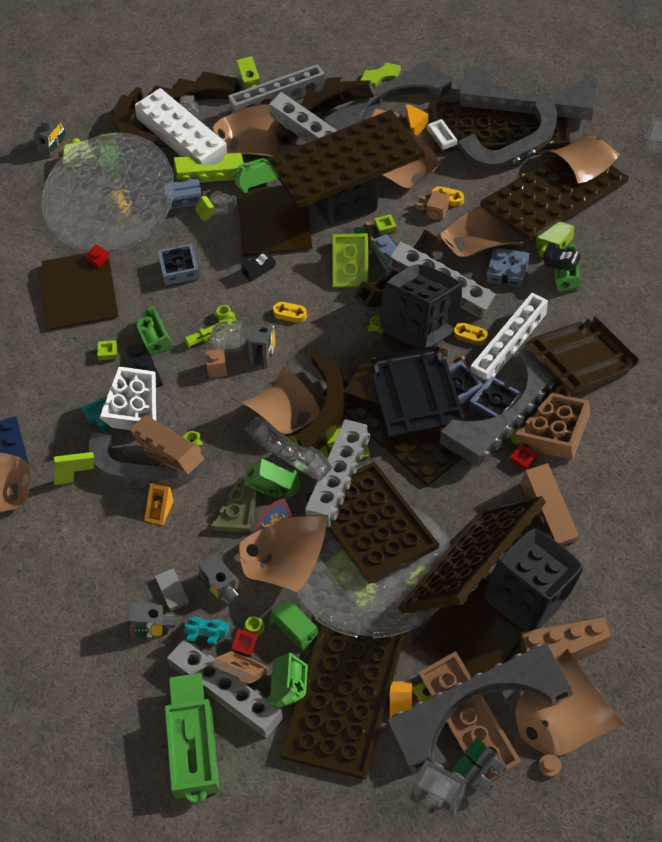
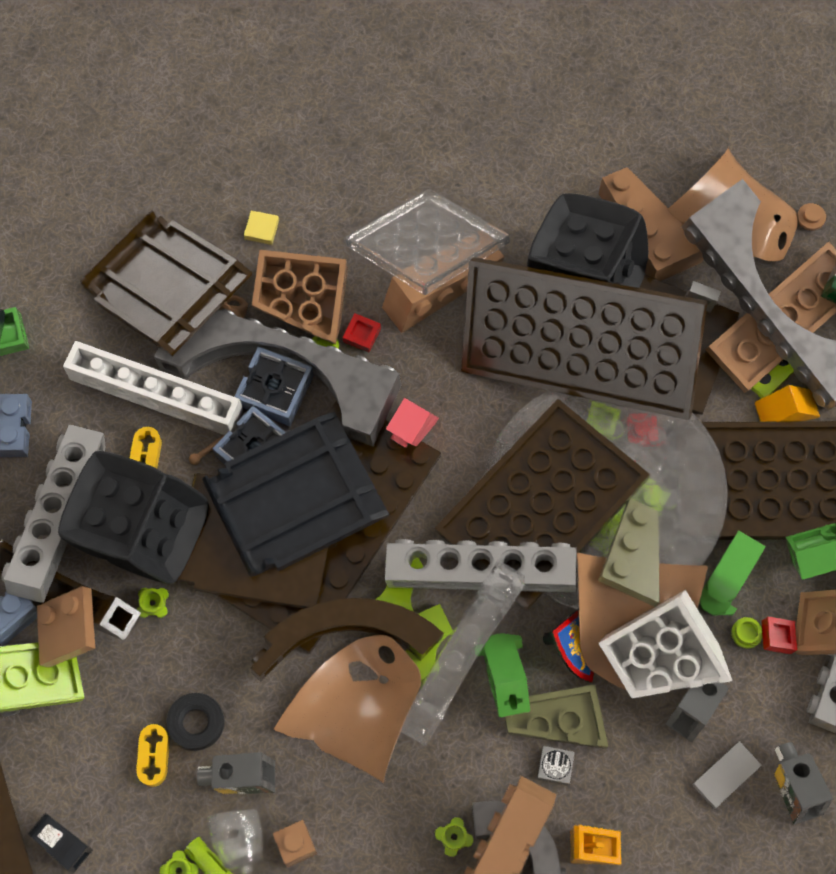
camera: 110 degrees left, 15 degrees up
(212, 500) = (556, 765): none -> light grey tile
(212, 629) = (776, 697): teal plate -> none
(253, 560) = (666, 650): none -> white wedge
(301, 343) = (209, 735): none -> black tyre
(318, 556) = (634, 554): none -> olive wing
(370, 273) = (65, 627): none -> medium nougat plate
(449, 465) = (410, 423): none -> coral slope
(496, 657) = (703, 292): none -> light grey tile
(575, 495) = (426, 240): none -> clear tile
(616, 418) = (261, 227): none -> light yellow tile

